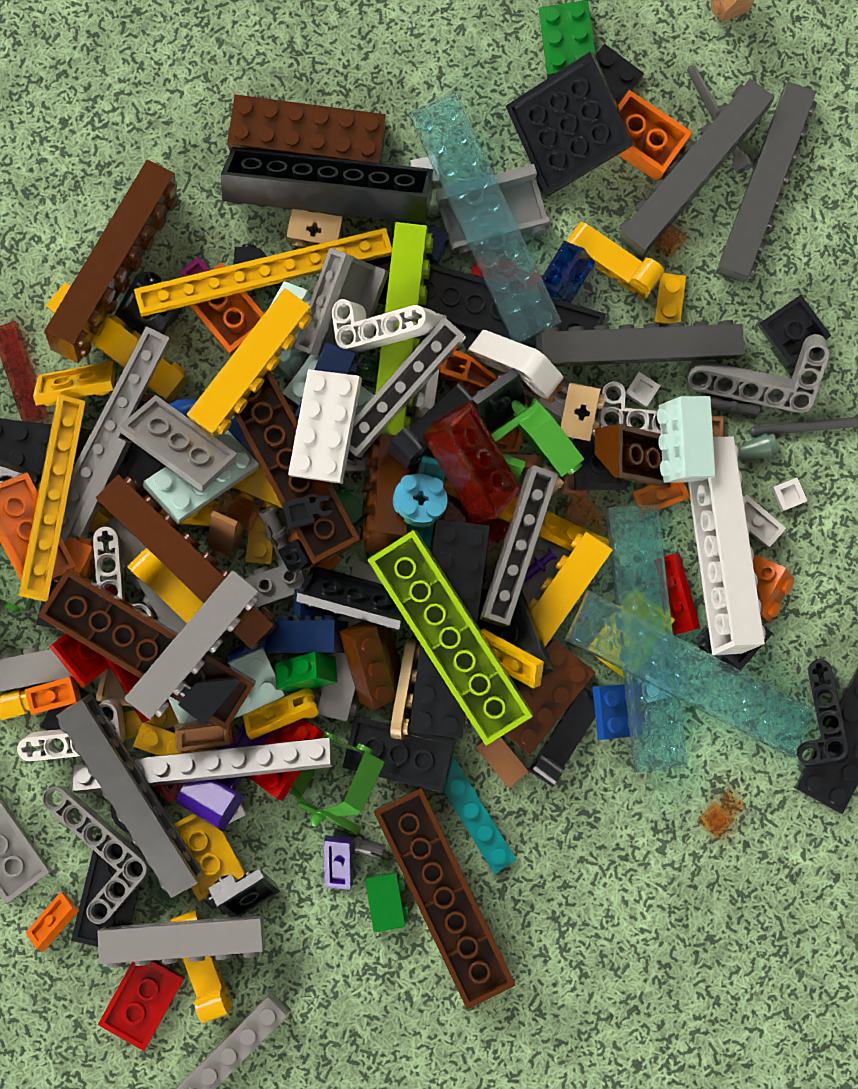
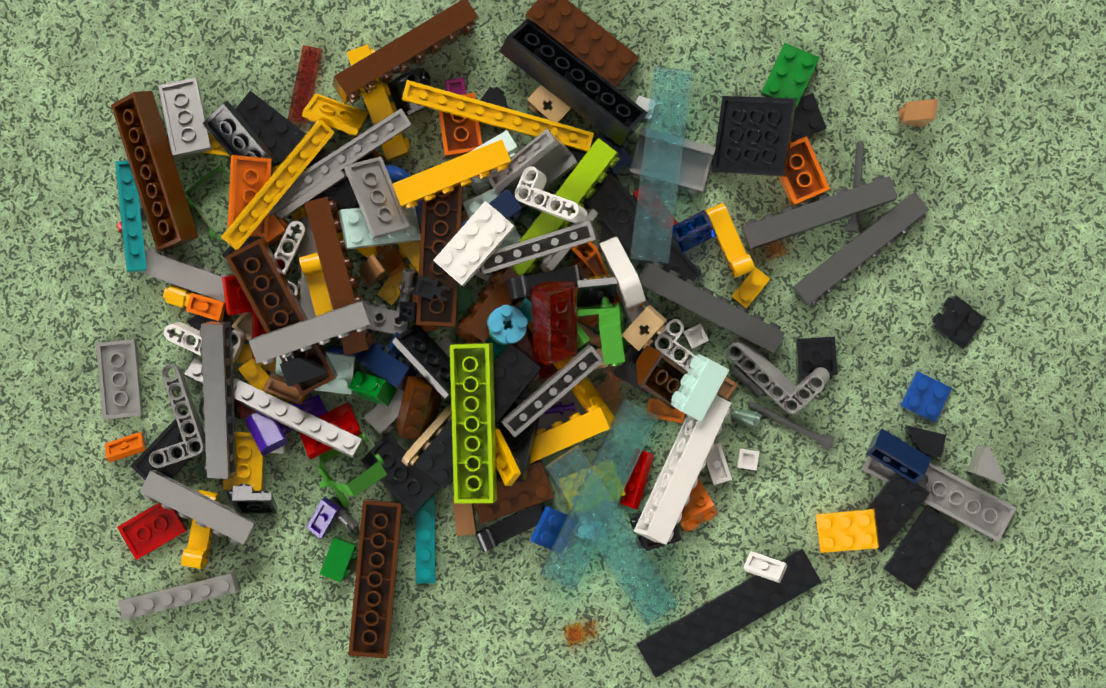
camera: 30 degrees right, 5 degrees up
(280, 713) = (341, 404): yellow plate -> none
(824, 712) = (681, 608): black beam -> none

